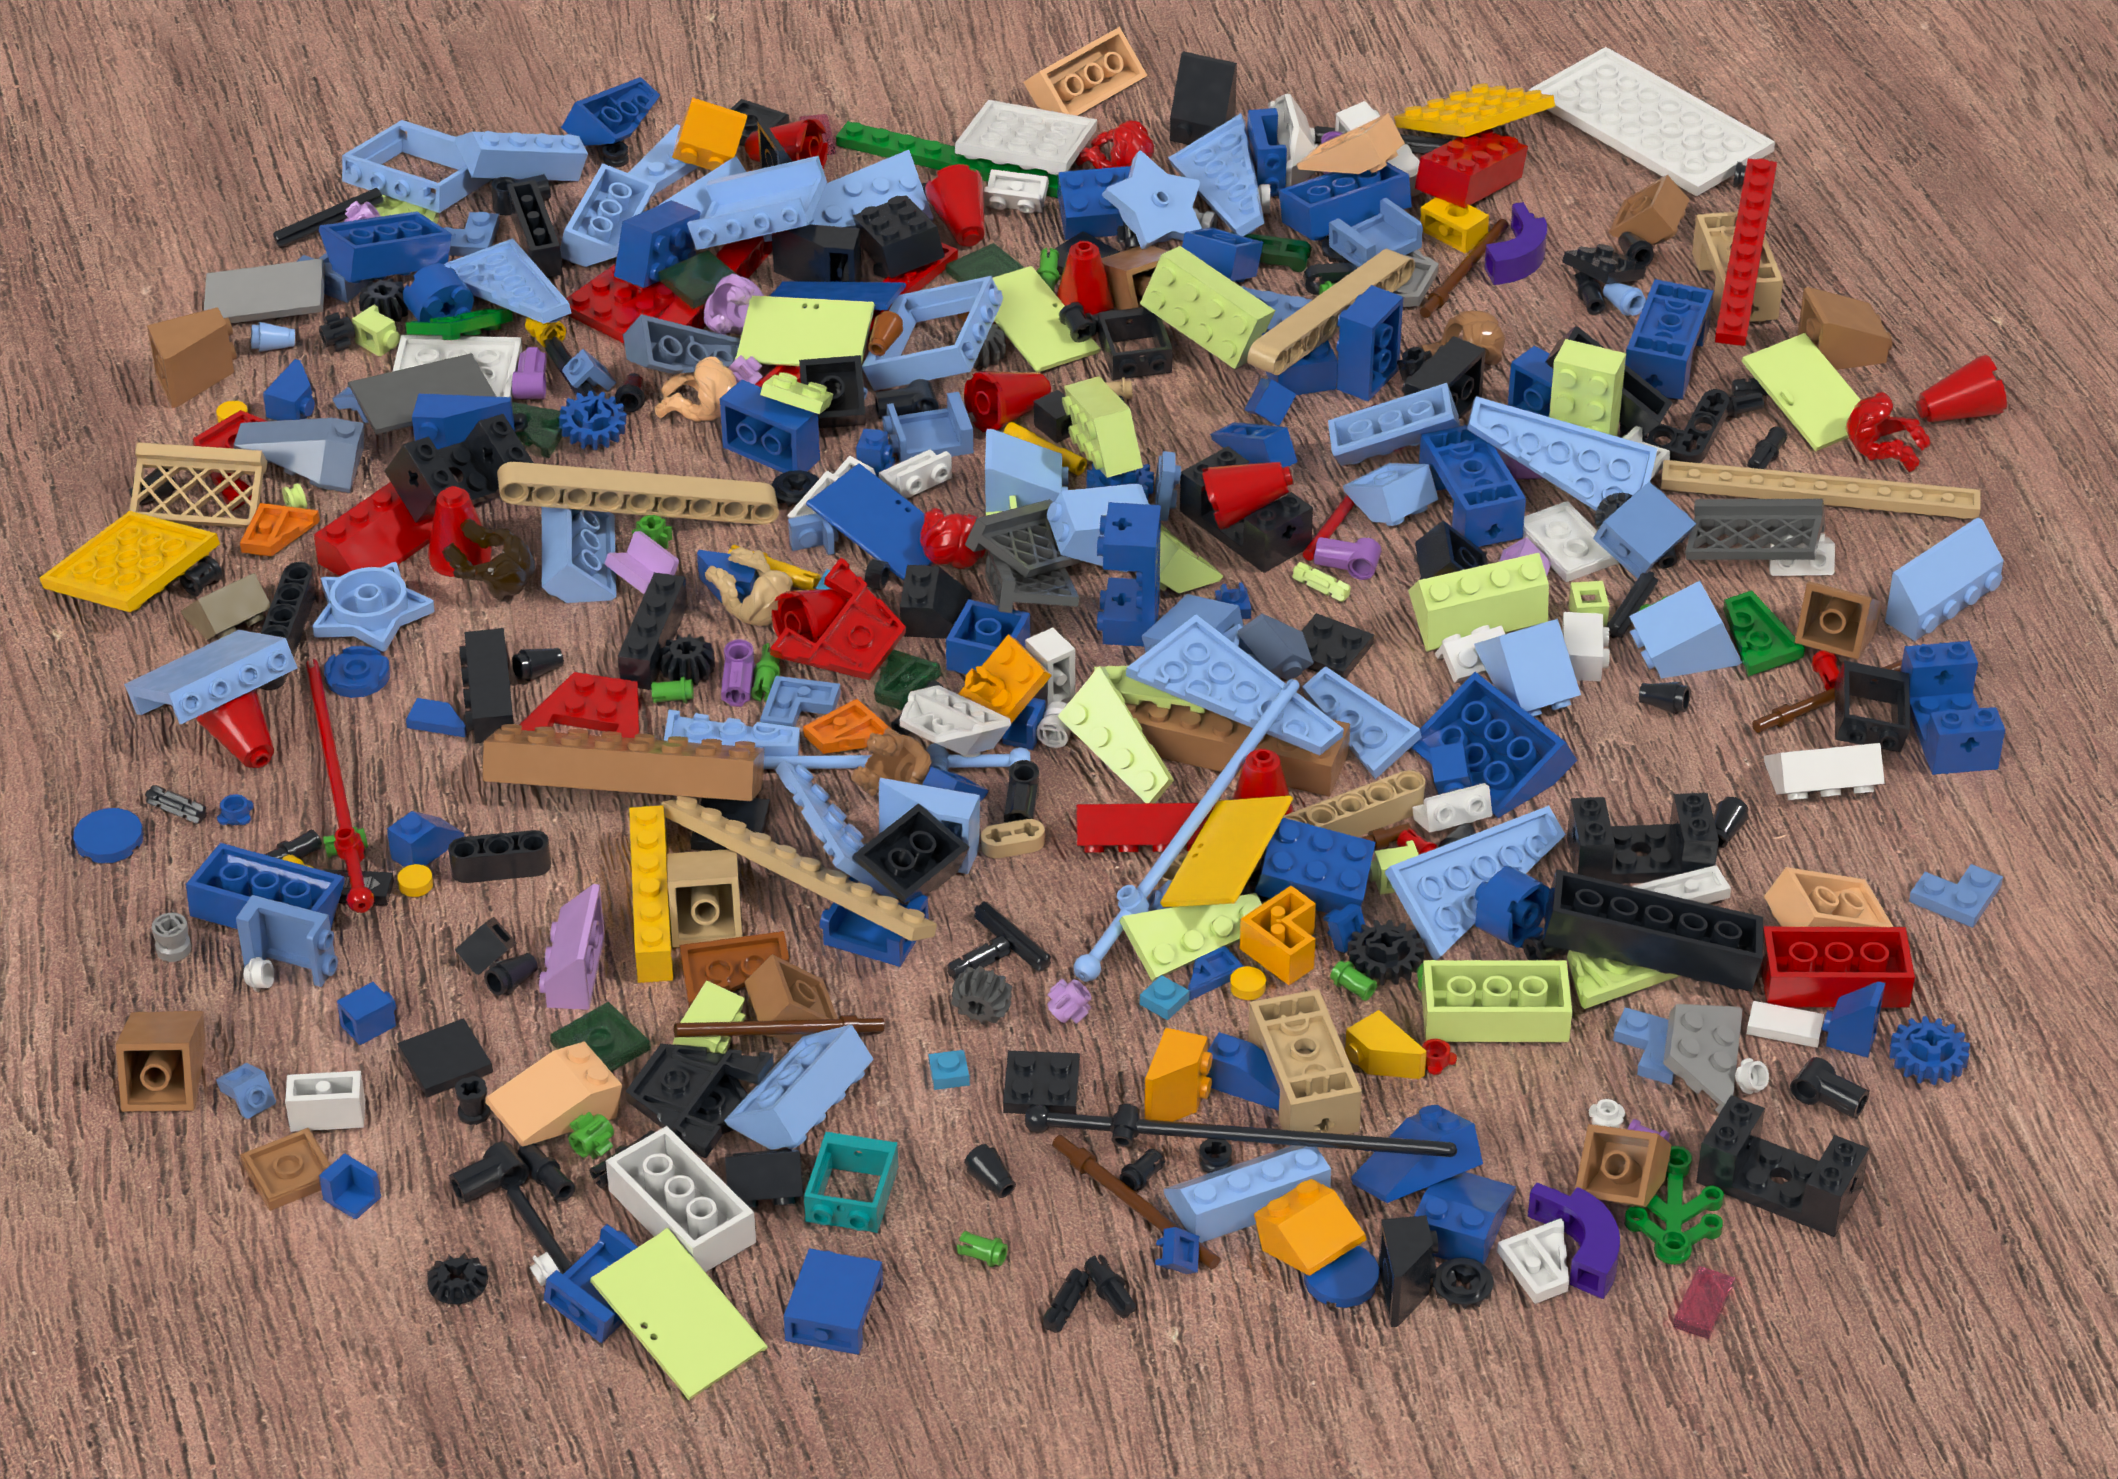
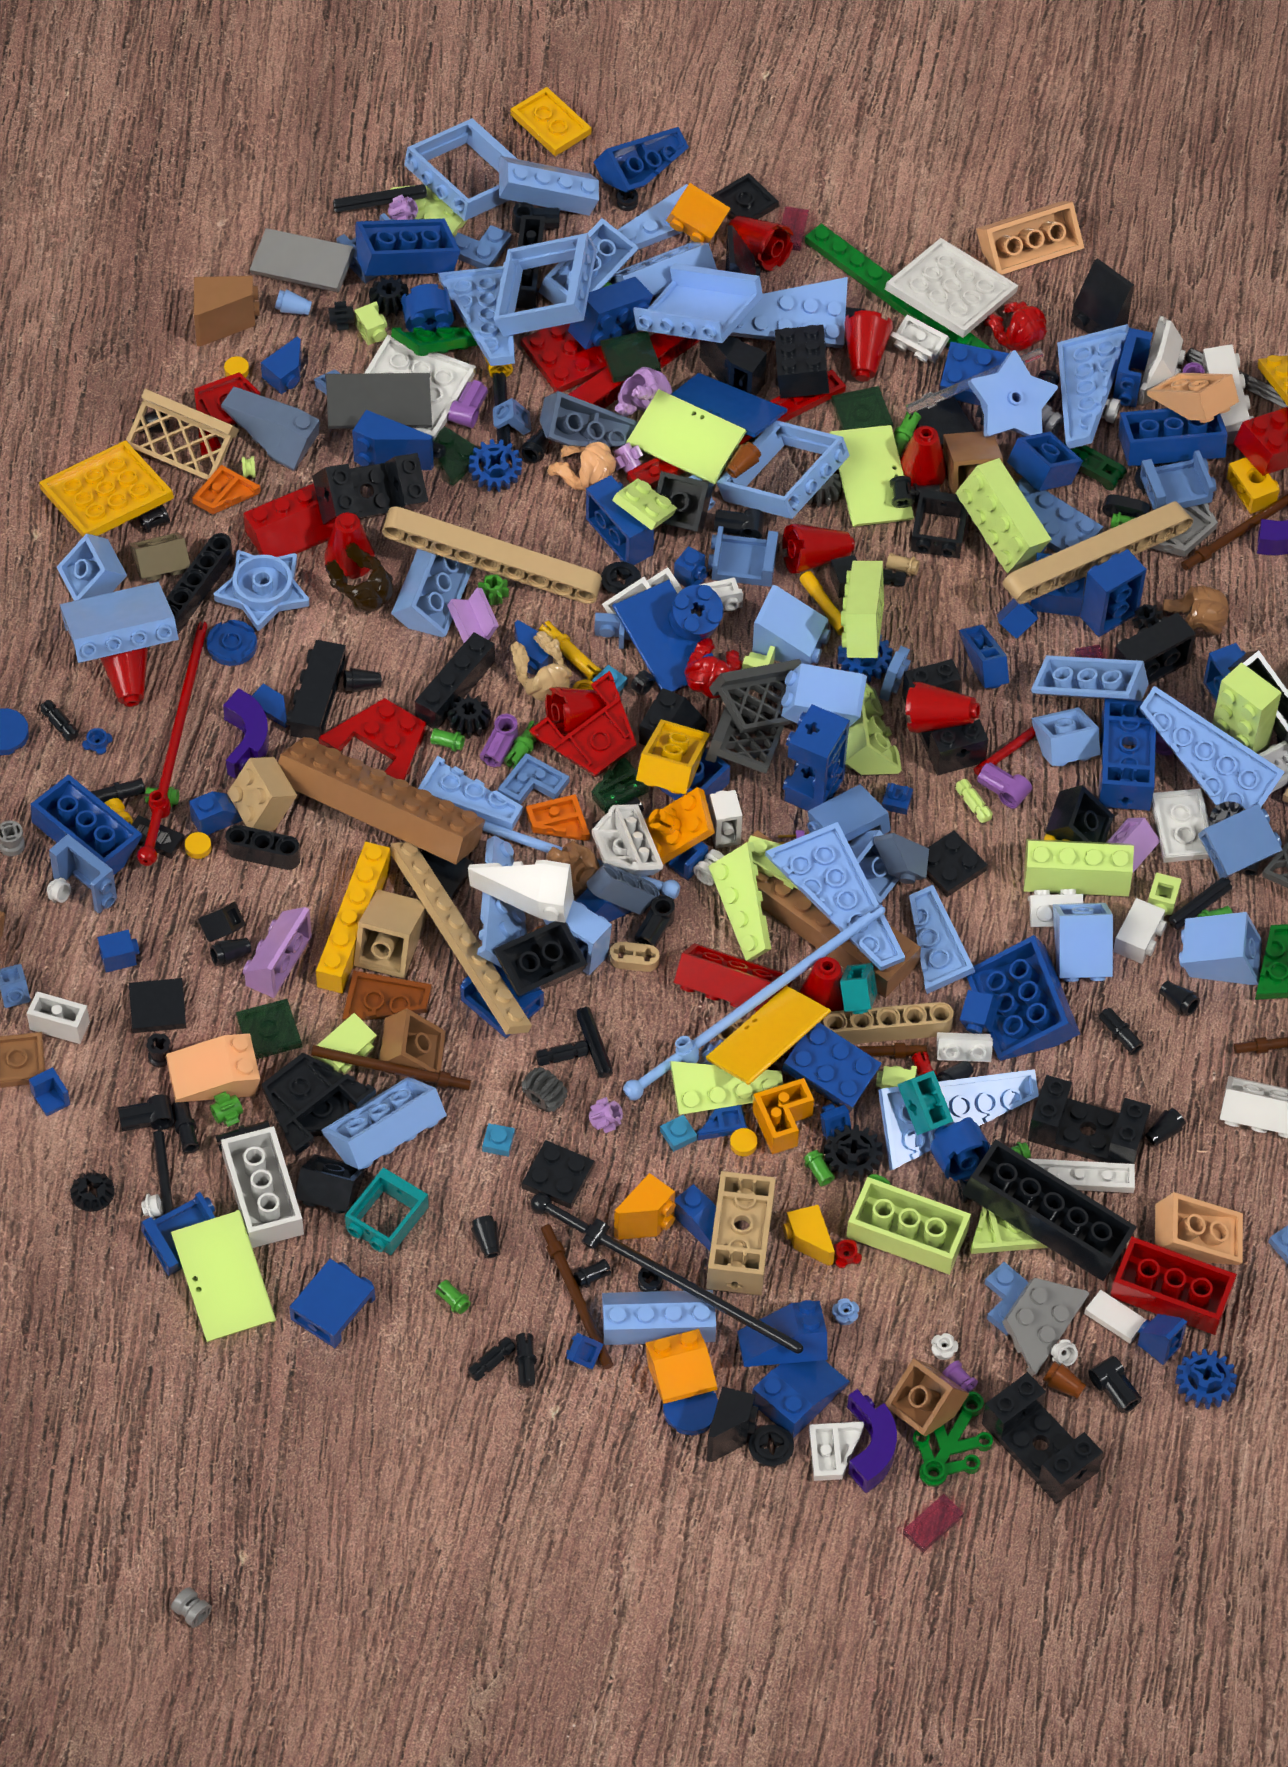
camera: 20 degrees right, 15 degrees up
(145, 641) = (91, 568): none -> light blue slope
(425, 737) = (250, 718): none -> dark purple arch
(475, 795) = (262, 793): none -> tan brick
(491, 107) = (550, 121): none -> yellow plate
(557, 201) = (554, 251): none -> light blue window
(867, 778) = (537, 888): none -> white wedge
(909, 481) = (703, 600): none -> blue brick
(961, 620) = (672, 757): none -> yellow slope
(969, 764) = (622, 888): none -> sand blue beam
(1066, 229) = (930, 399): none -> clear bar
(1306, 779) = (858, 988): none -> teal brick
(1451, 862) = (925, 1102): none -> teal brick
(1473, 1112) = (842, 1317): none -> light blue plate
(1619, 747) = (1121, 1031): none -> black axle
(1776, 1104) = (1063, 1380): none -> dark orange cone

